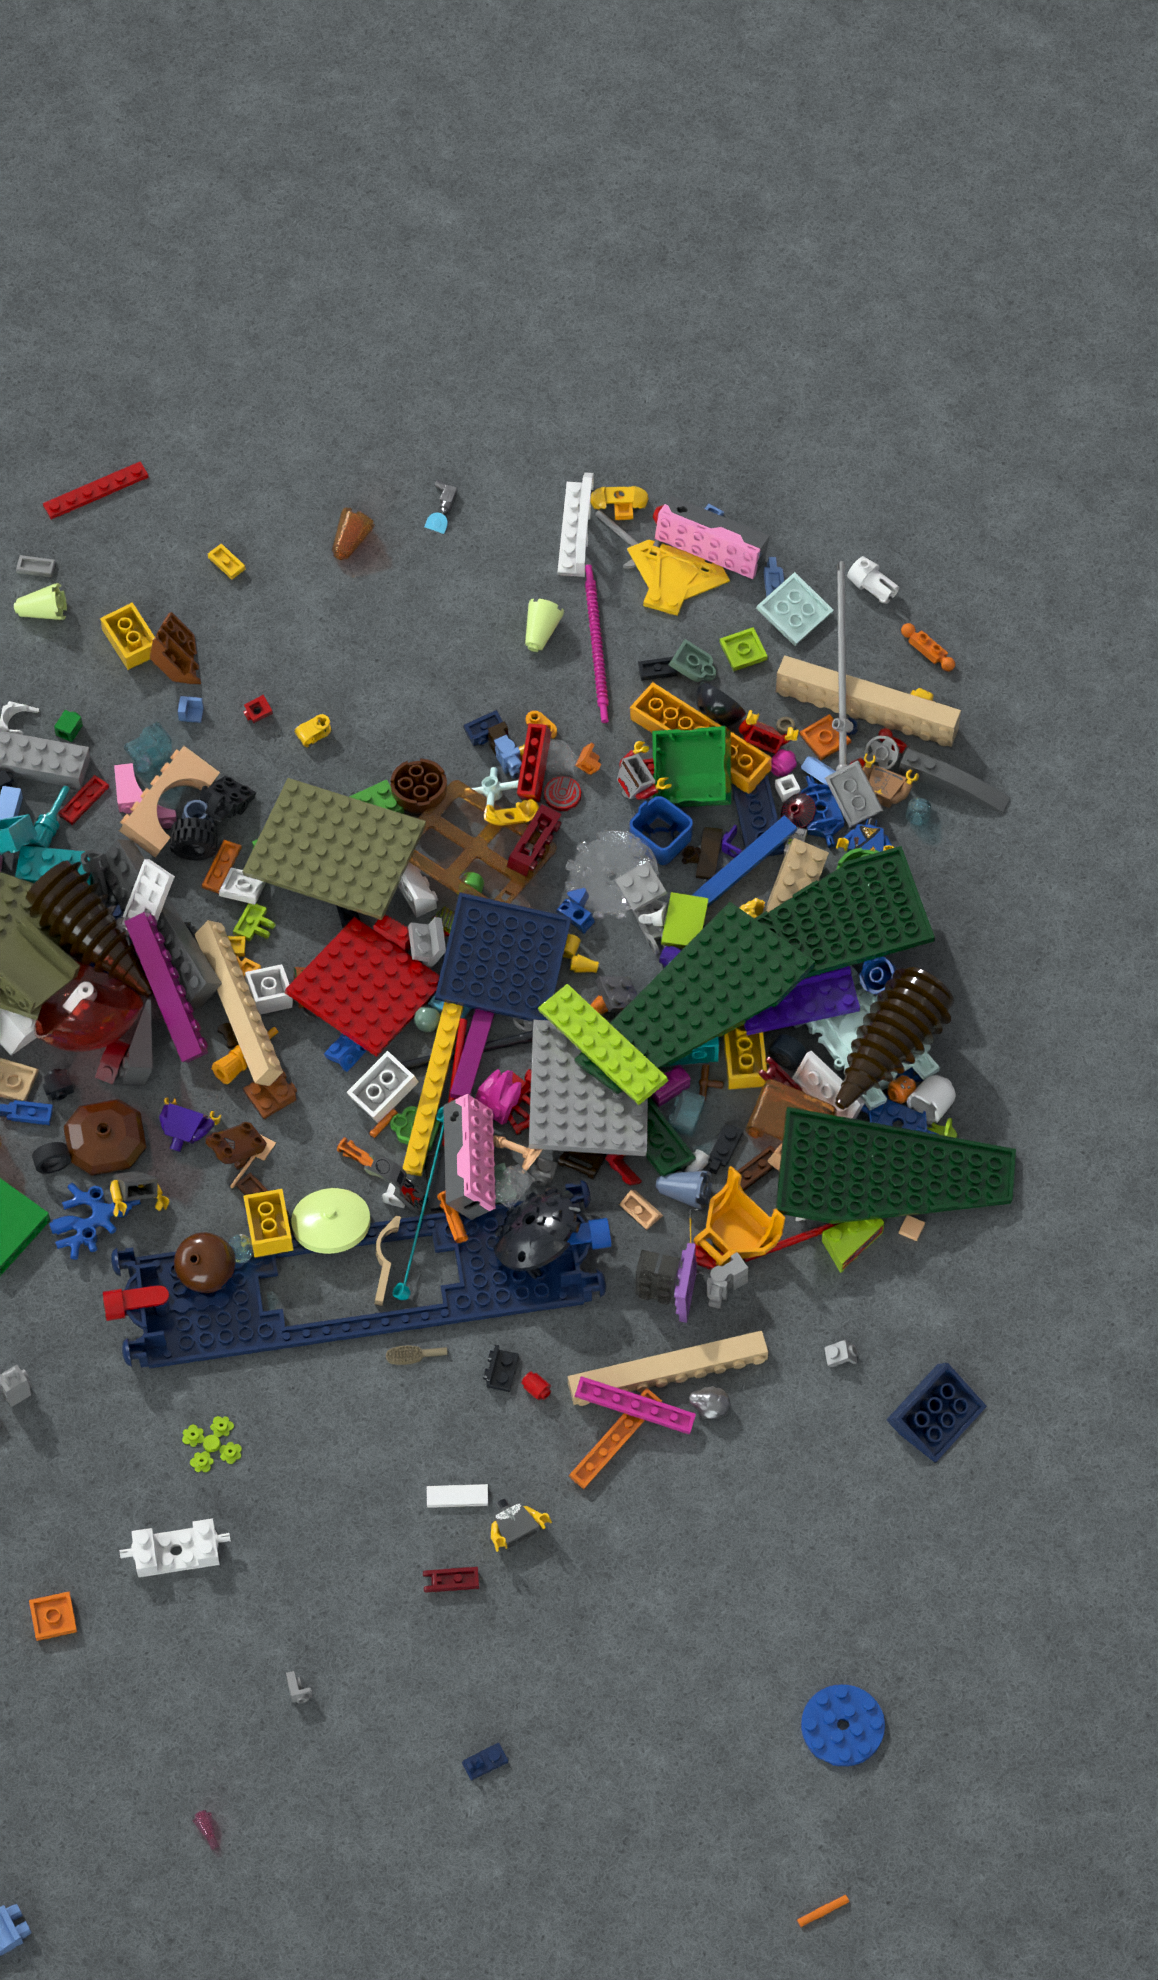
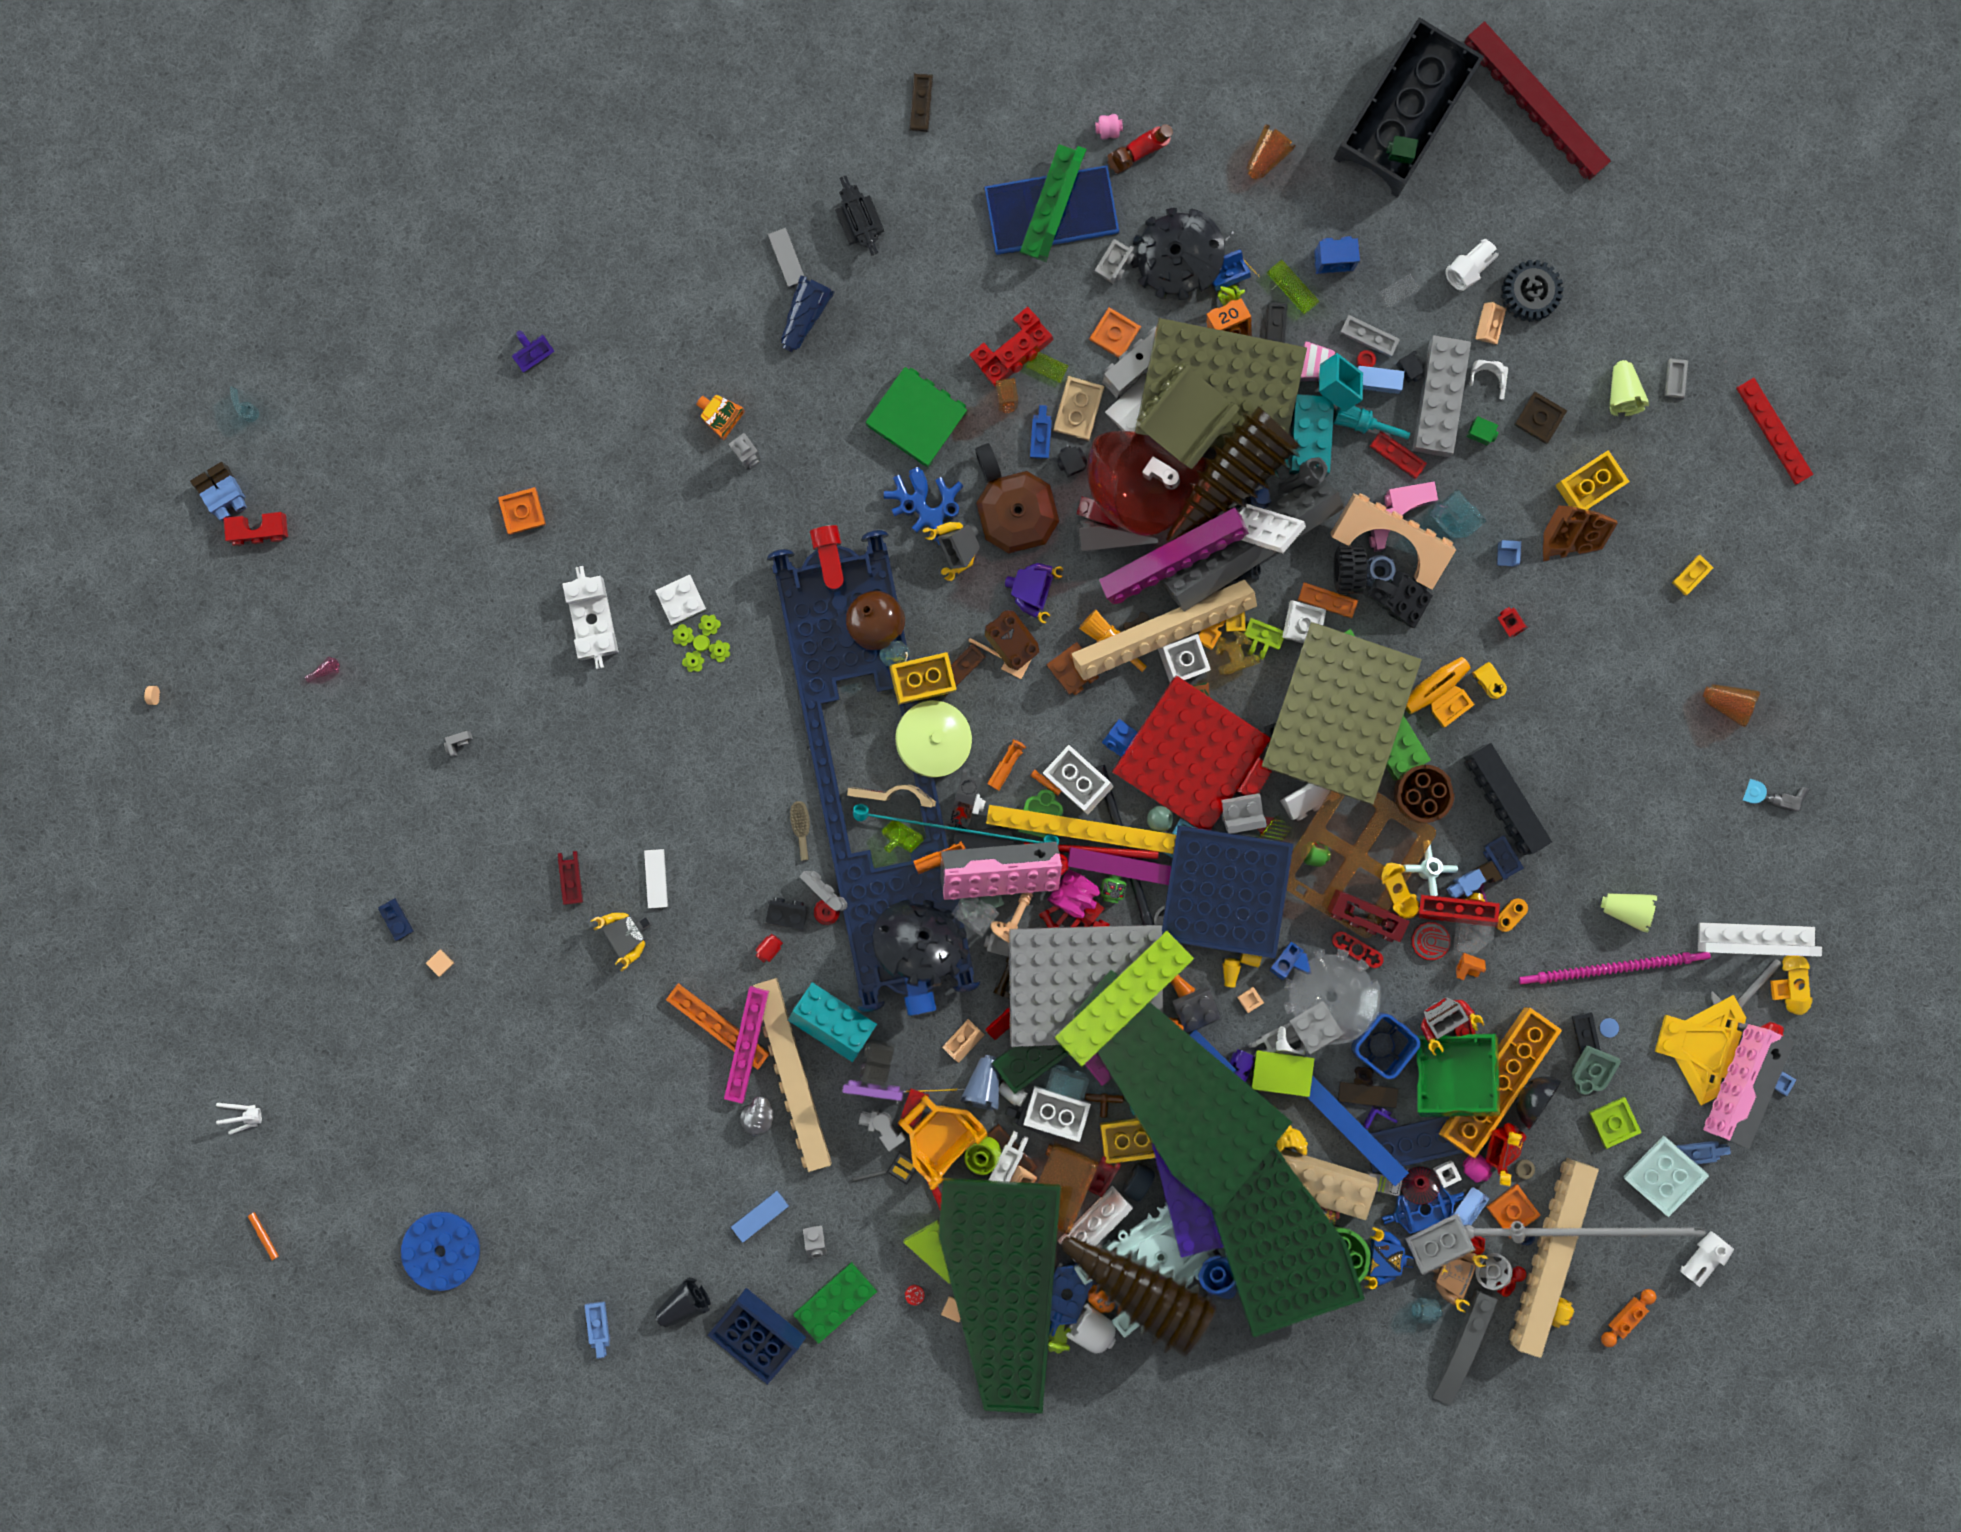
camera: 80 degrees right, 25 degrees up
(44, 1912) = (272, 527): none -> red arch
(61, 677) = (1540, 417): none -> dark brown plate
(164, 1461) = (680, 600): none -> white plate
(268, 944) = (1235, 653): none -> clear yellow piece
(327, 768) = (1441, 693): none -> light orange plate
(428, 1253) = (901, 836): none -> clear neon green plate
(429, 719) = (1507, 799): none -> black brick
(481, 1326) = (823, 890): none -> light grey hinge
(494, 1061) = (1113, 889): none -> head
(502, 1332) = (825, 918): none -> red cone
(534, 1716) = (440, 963): none -> light nougat tile
(567, 848) = (1372, 952): none -> red beam
(612, 950) = (1250, 1000): none -> light nougat tile
(615, 1323) = (832, 1022): none -> teal brick
(653, 651) = (1609, 1027): none -> medium blue piece
(691, 1918) = (251, 1116): none -> white plant
(715, 1120) = (1056, 1113): none -> white slope
(759, 1166) = (1008, 1160): none -> white hinge
(766, 1184) = (983, 1164): none -> lime piece
(769, 1272) = (900, 1168): none -> piece
(813, 1407) = (759, 1216): none -> medium blue tile
(896, 1263) = (914, 1294): none -> red tile
(903, 1338) = (835, 1302): none -> green plate
(903, 1480) = (683, 1304): none -> black cone
(925, 1567) = (597, 1327): none -> medium blue hinge

